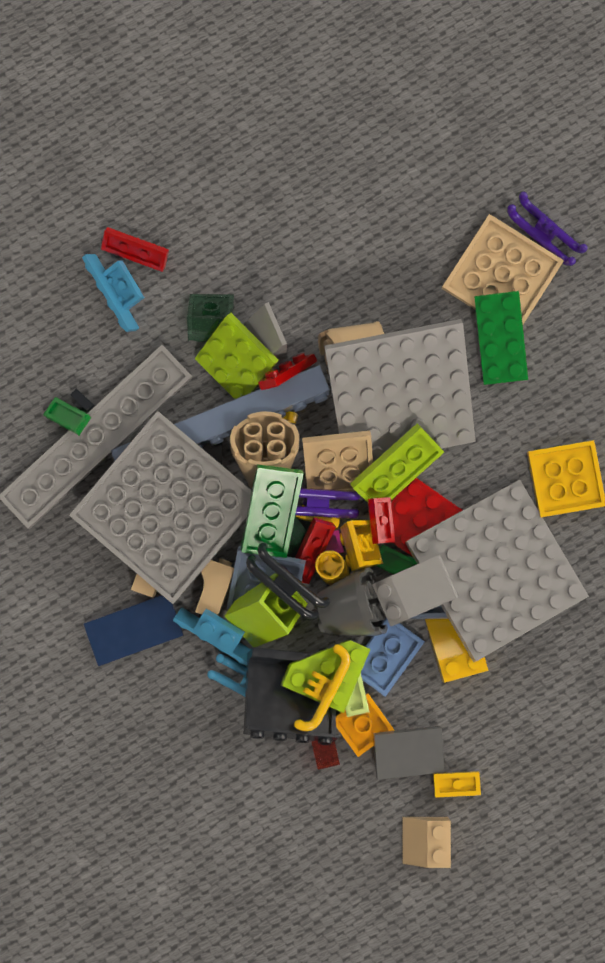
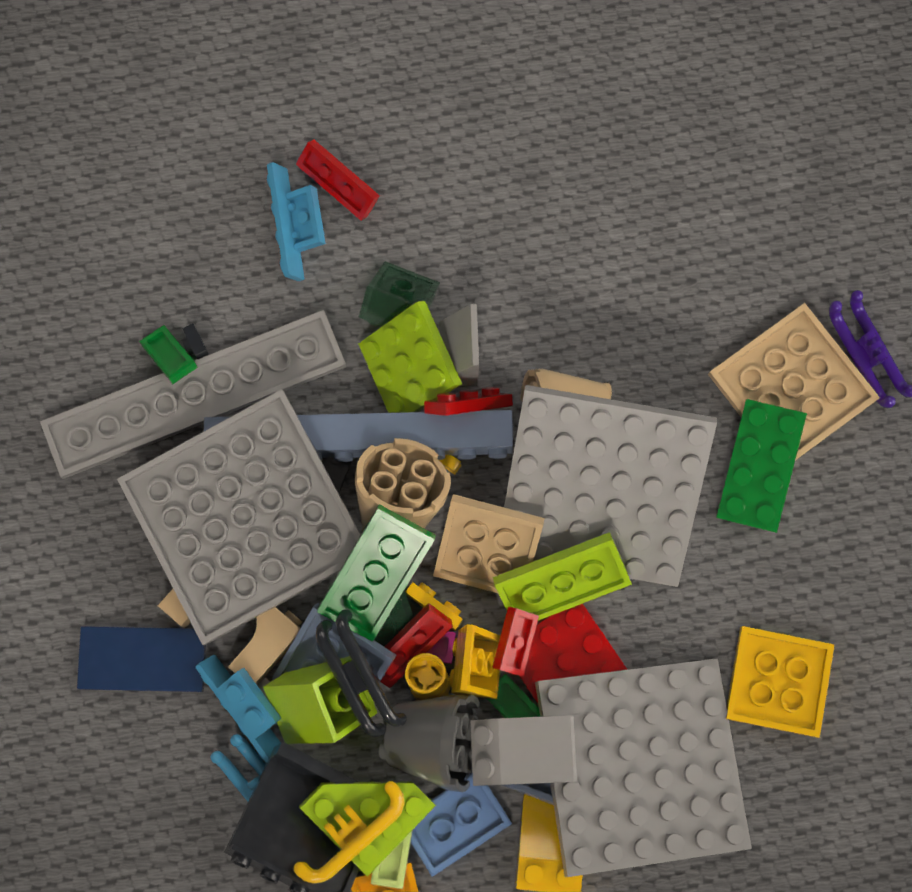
camera: 20 degrees right, 5 degrees down
(318, 503) = (442, 587): dark purple piece -> none

